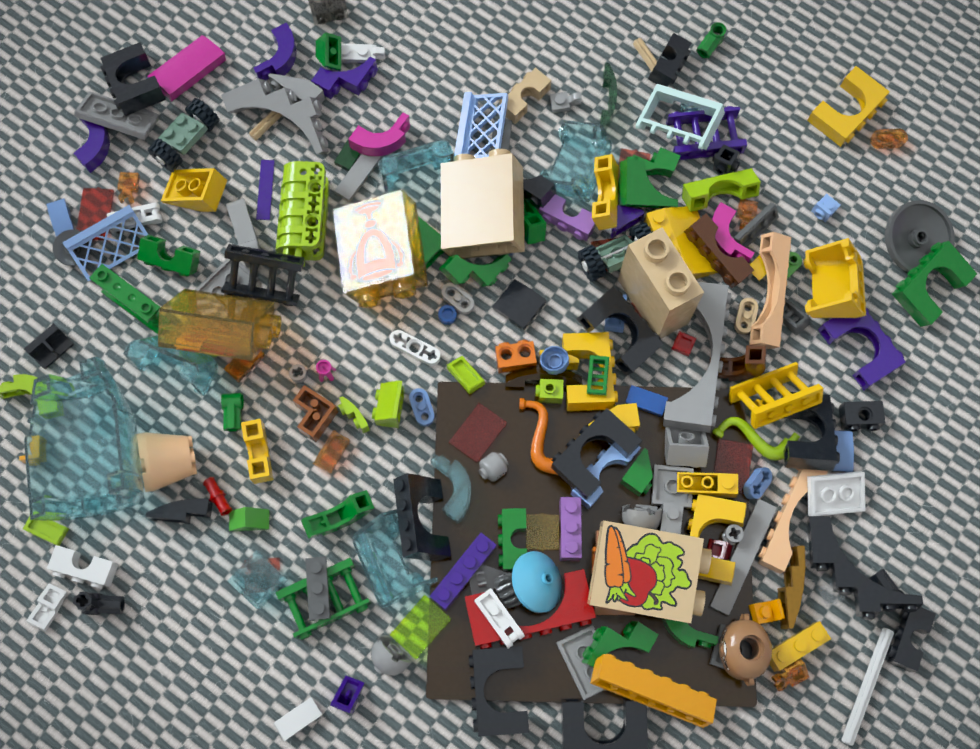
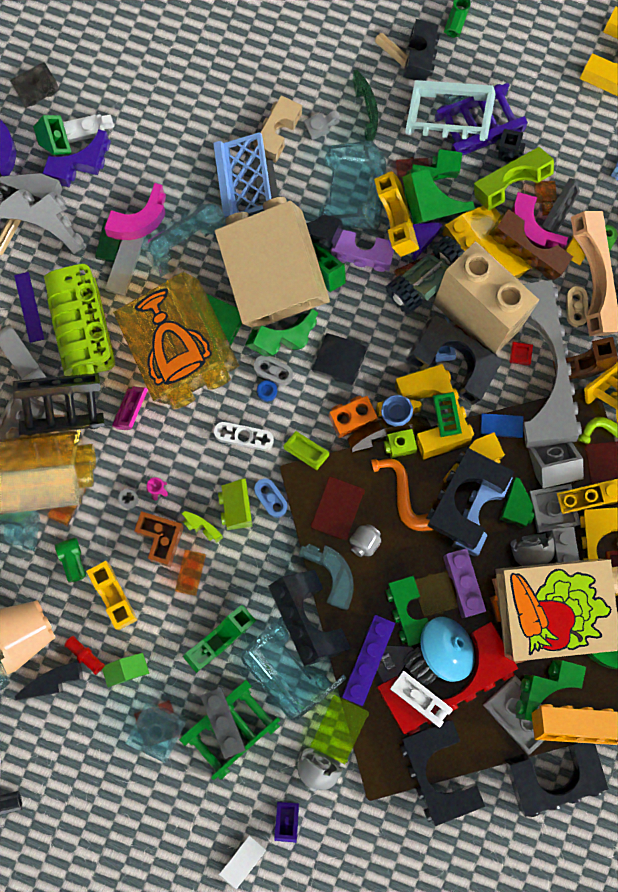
camera: 20 degrees left, 5 degrees up
(322, 295) = (129, 408): none -> dark pink slope

